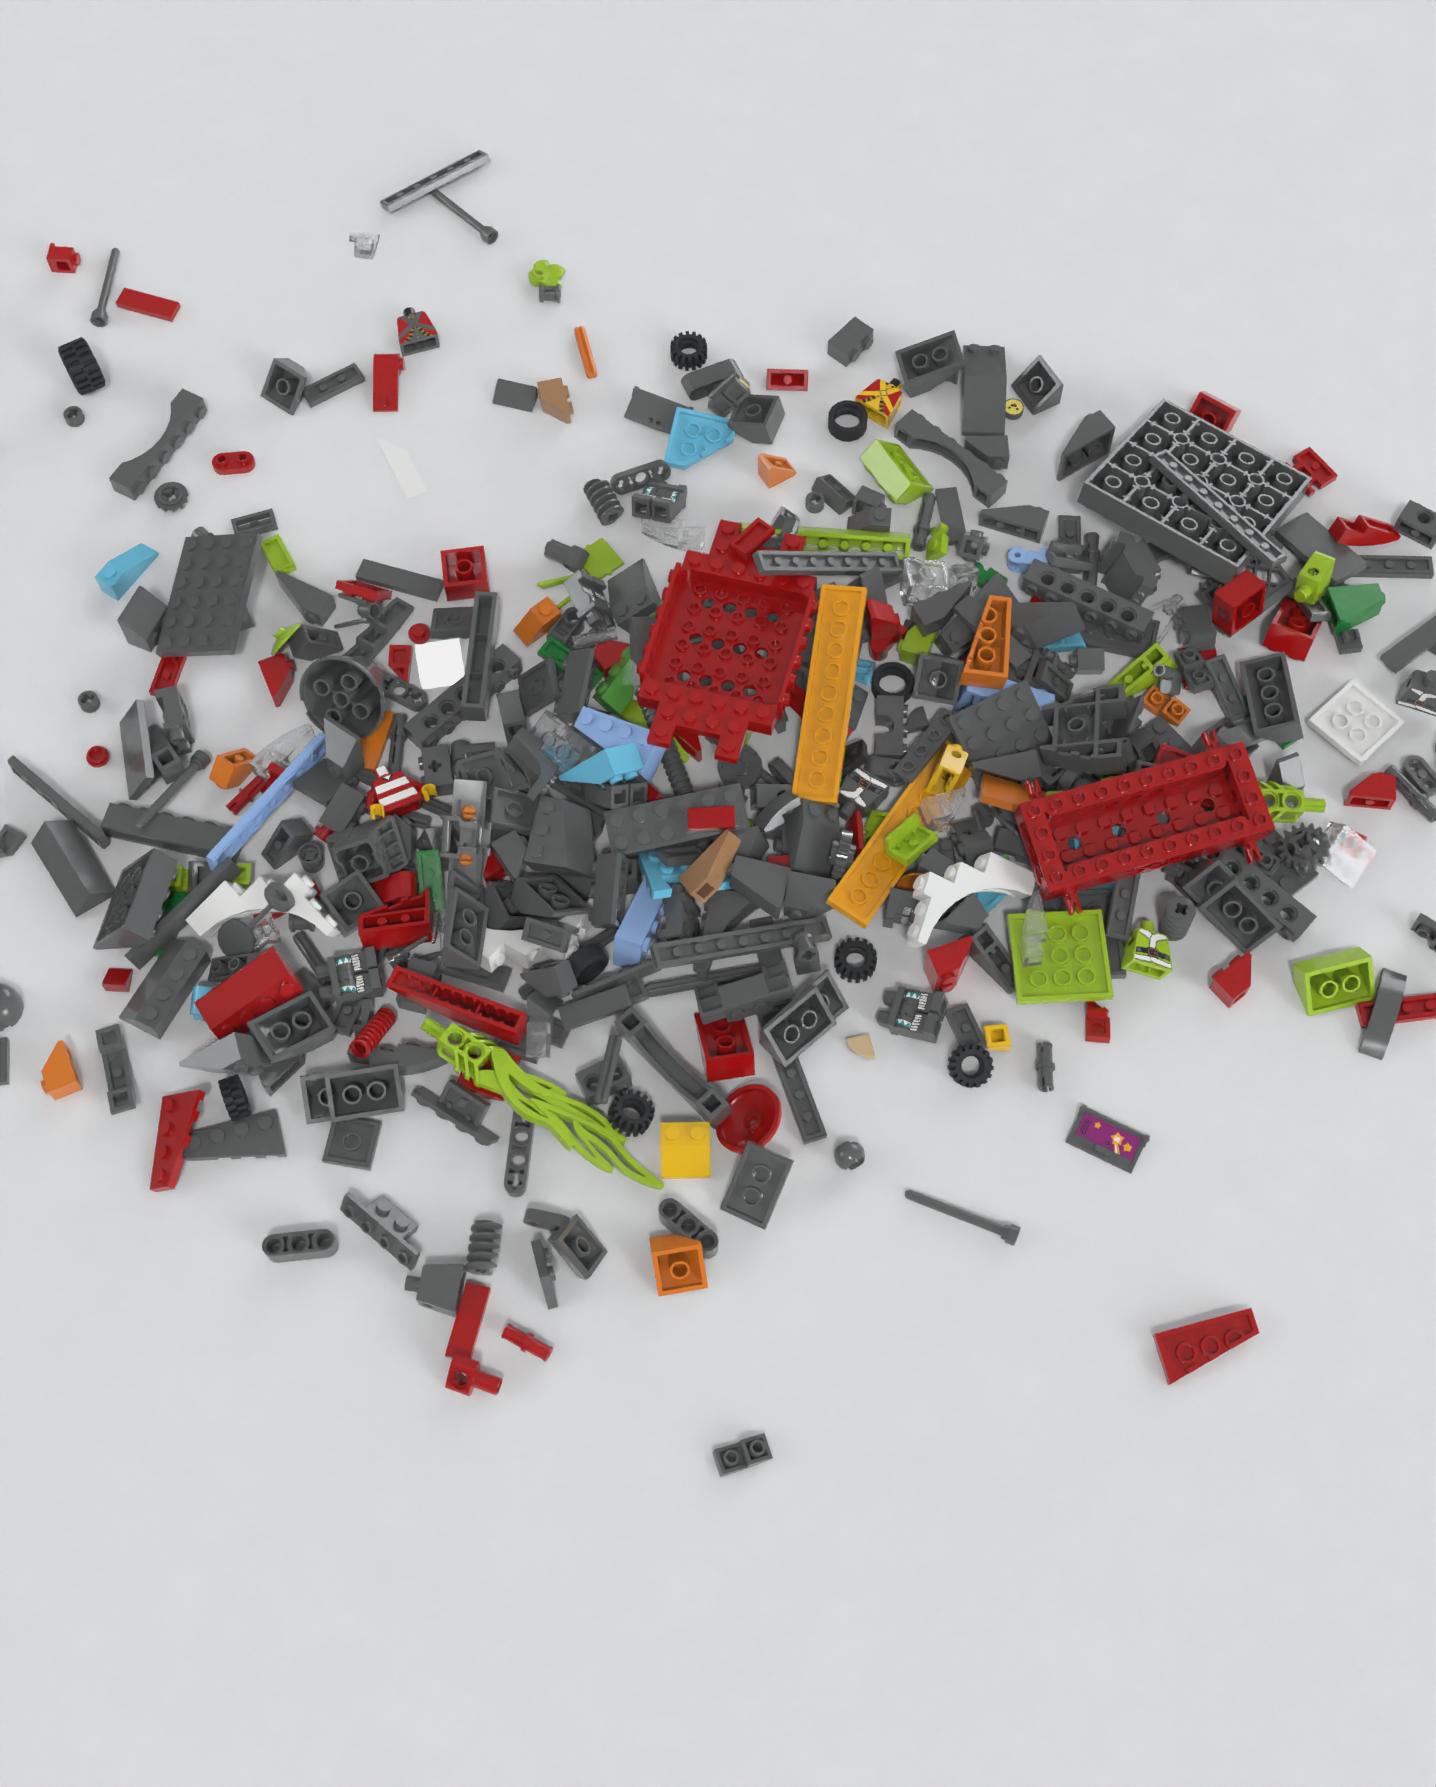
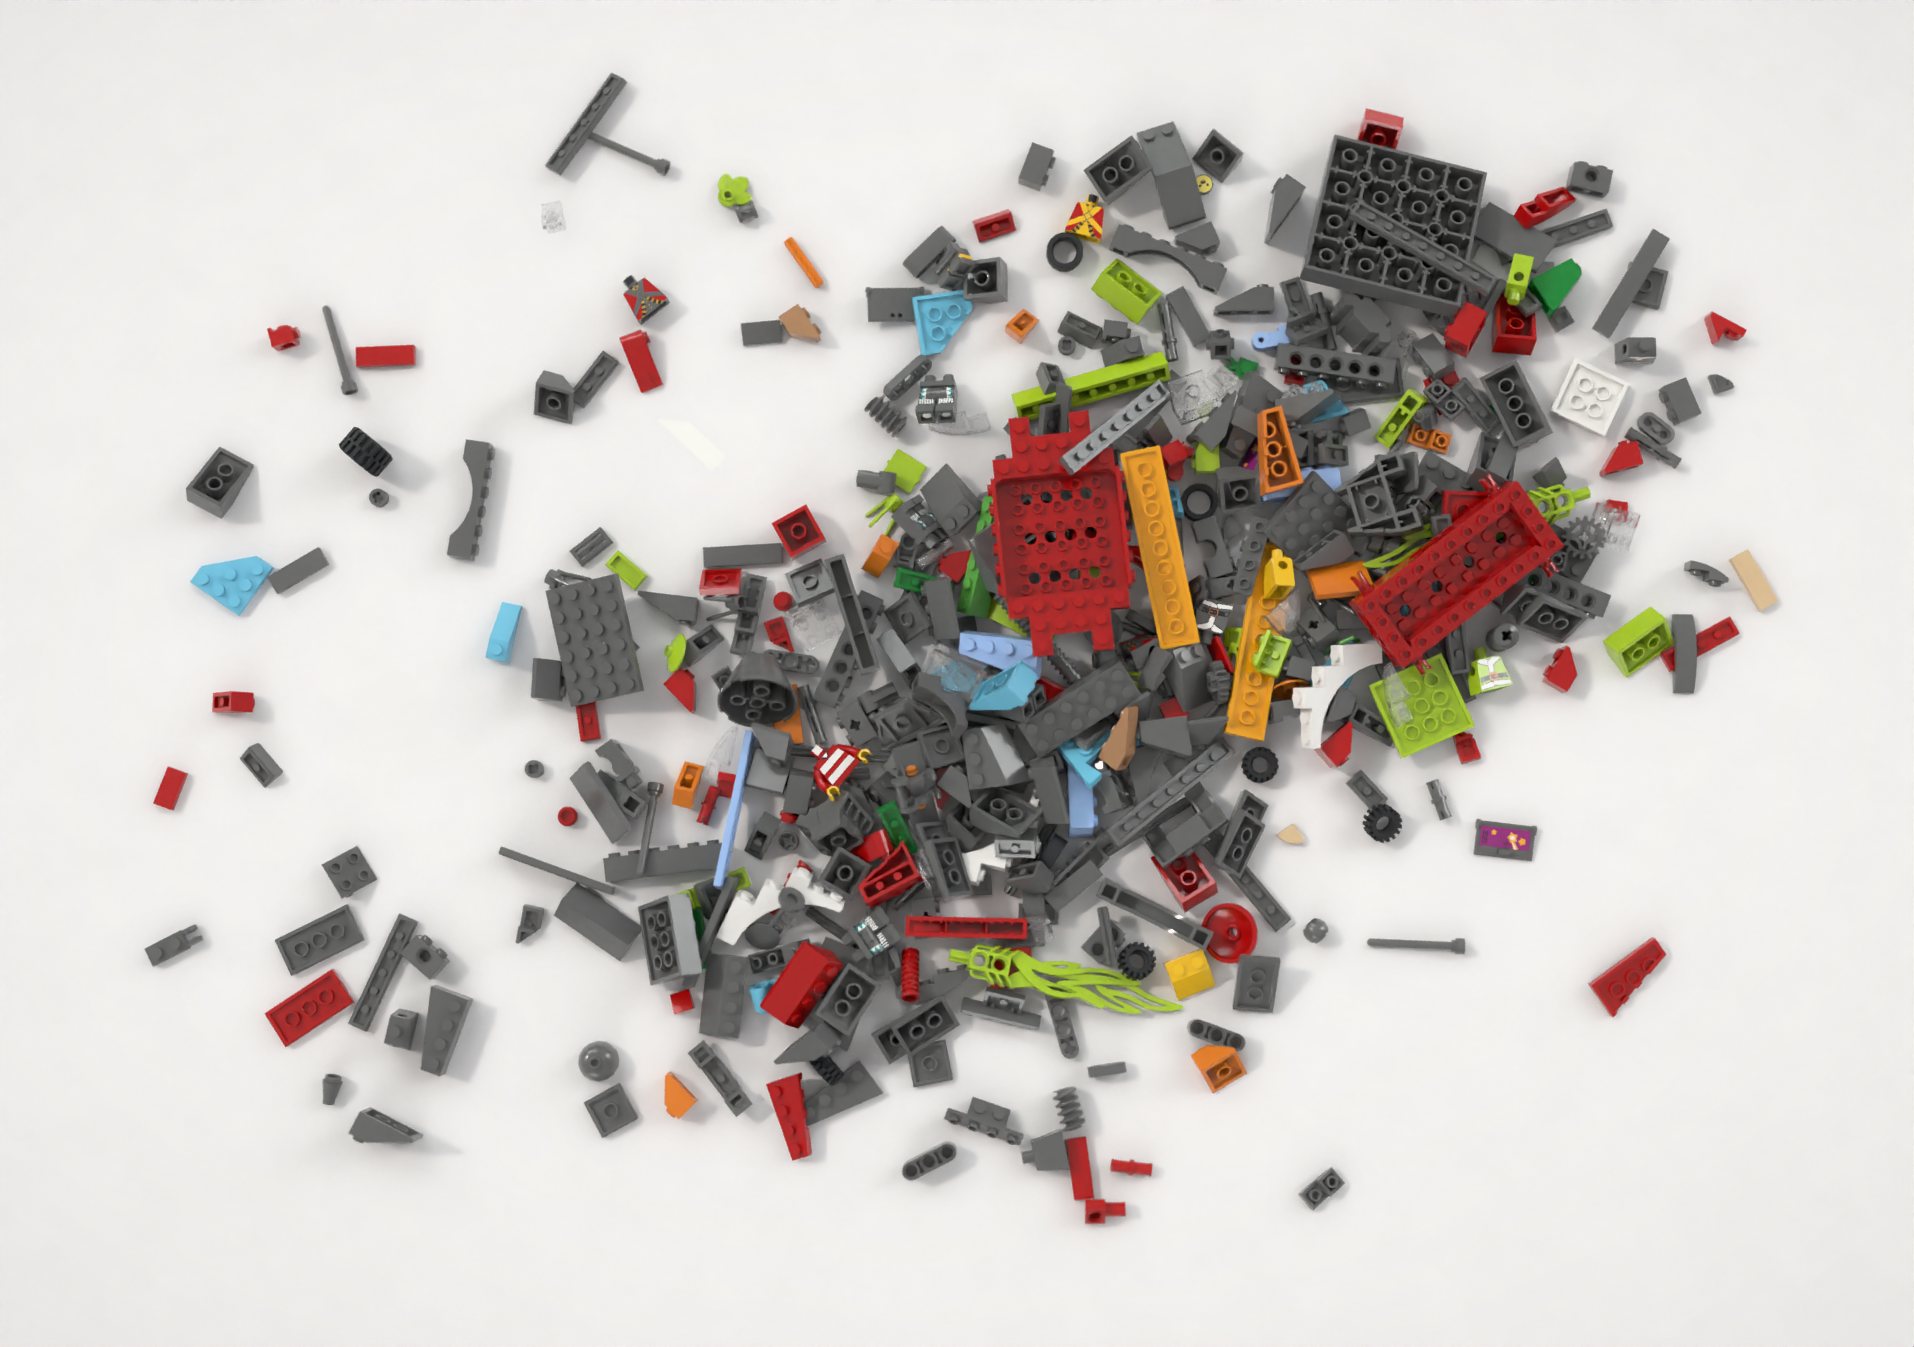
camera: 15 degrees left, 20 degrees up
(168, 490) = (499, 541): dark grey gear -> none
(231, 463) = (543, 493): red plate -> none
(545, 1272) = (1126, 1114): dark grey wing -> none
(578, 1247) = (1141, 1083): dark grey slope -> none
(688, 360) = (895, 240): black tyre -> none
(711, 818) = (1110, 702): red slope -> none
(751, 538) = (1044, 432): red tile -> none
(805, 953) = (1221, 778): dark grey piece -> none
(914, 1013) = (1316, 795): dark grey hips -> none
(938, 545) = (1189, 351): lime plate -> none
(997, 1037) = (1394, 790): yellow slope -> none
(1314, 466) = (1480, 152): red plate -> none

